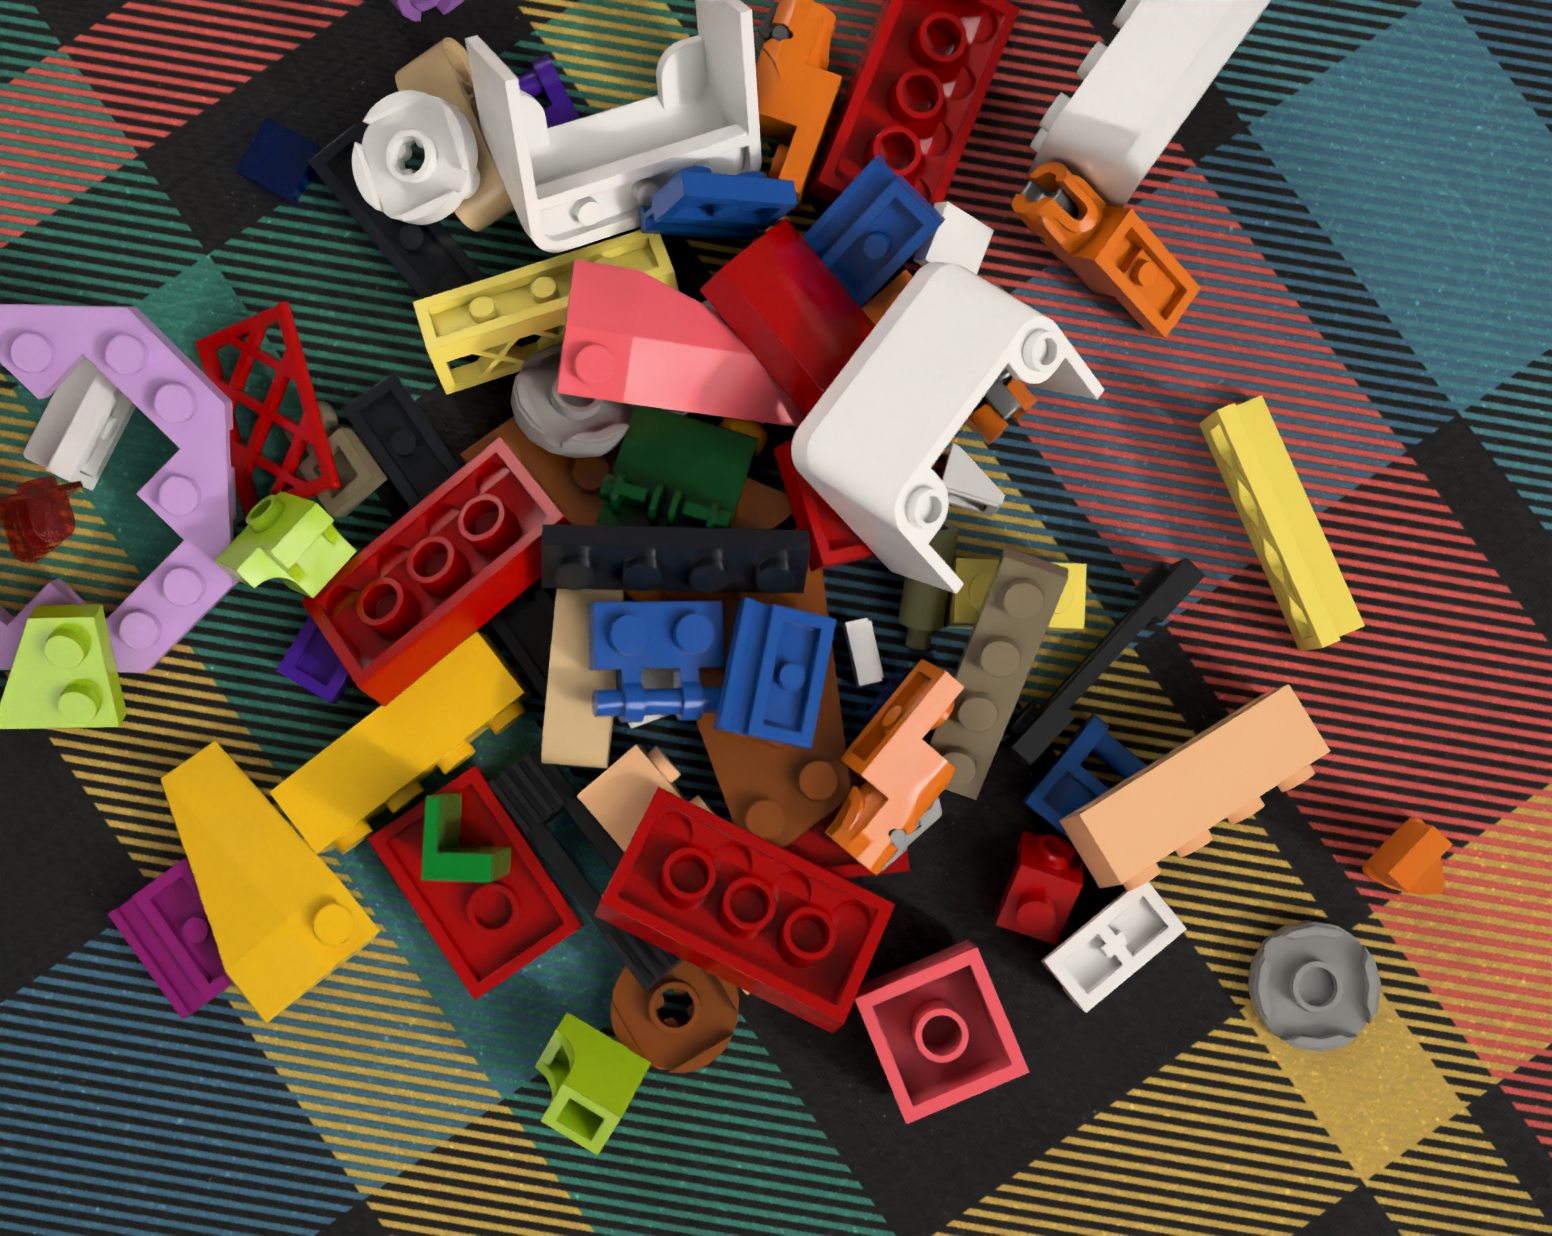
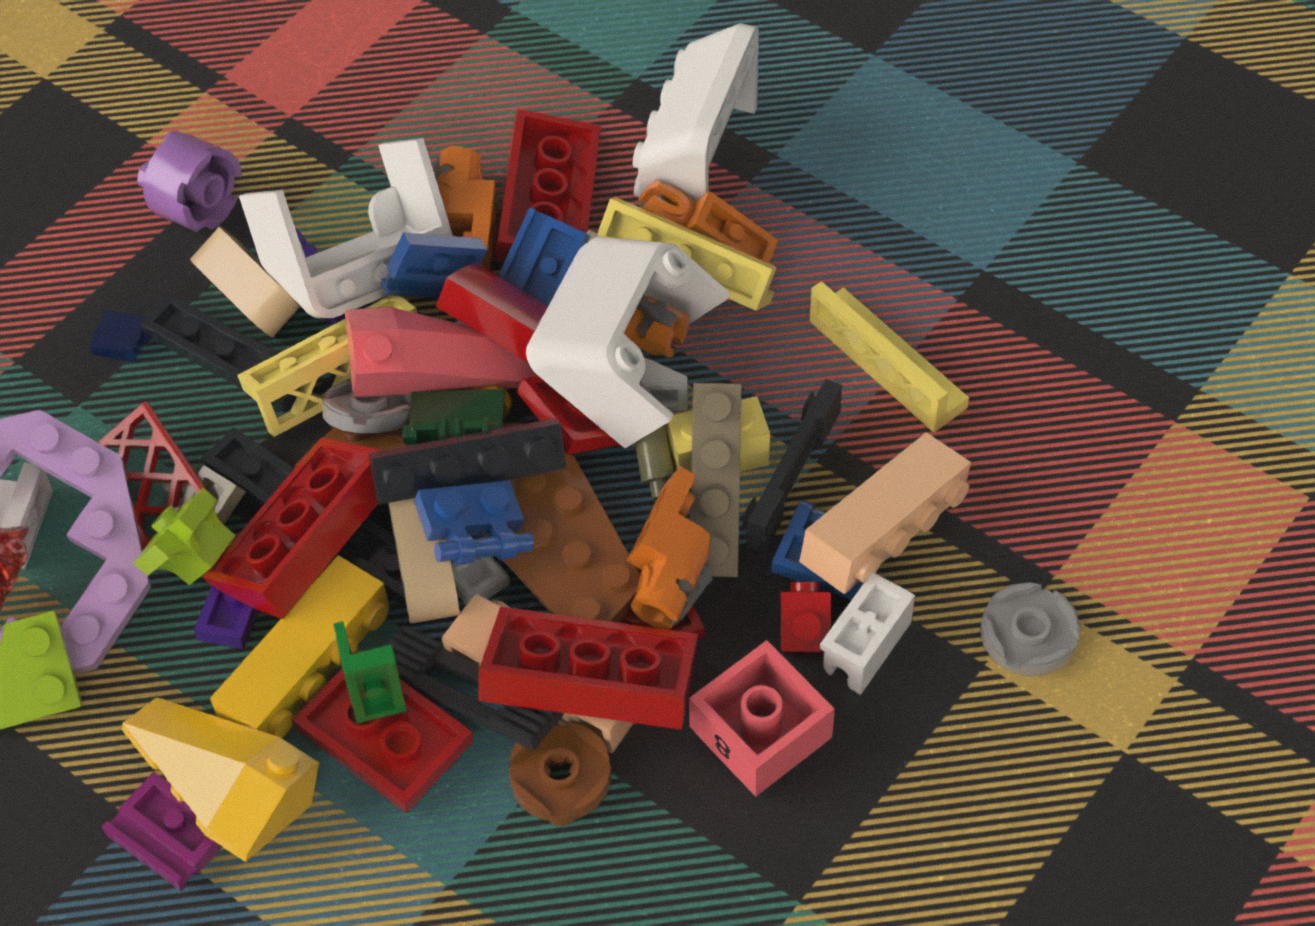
camera: 10 degrees left, 30 degrees down
(448, 166) = (237, 302): white plate -> none
(589, 1082) = (509, 827): lime brick -> none
(775, 673) = (561, 510): blue plate -> none
(863, 652) = (622, 505): white tile -> none
(1066, 291) = (736, 271): none -> light yellow fence
(1410, 859) = (1060, 528): orange tile -> none

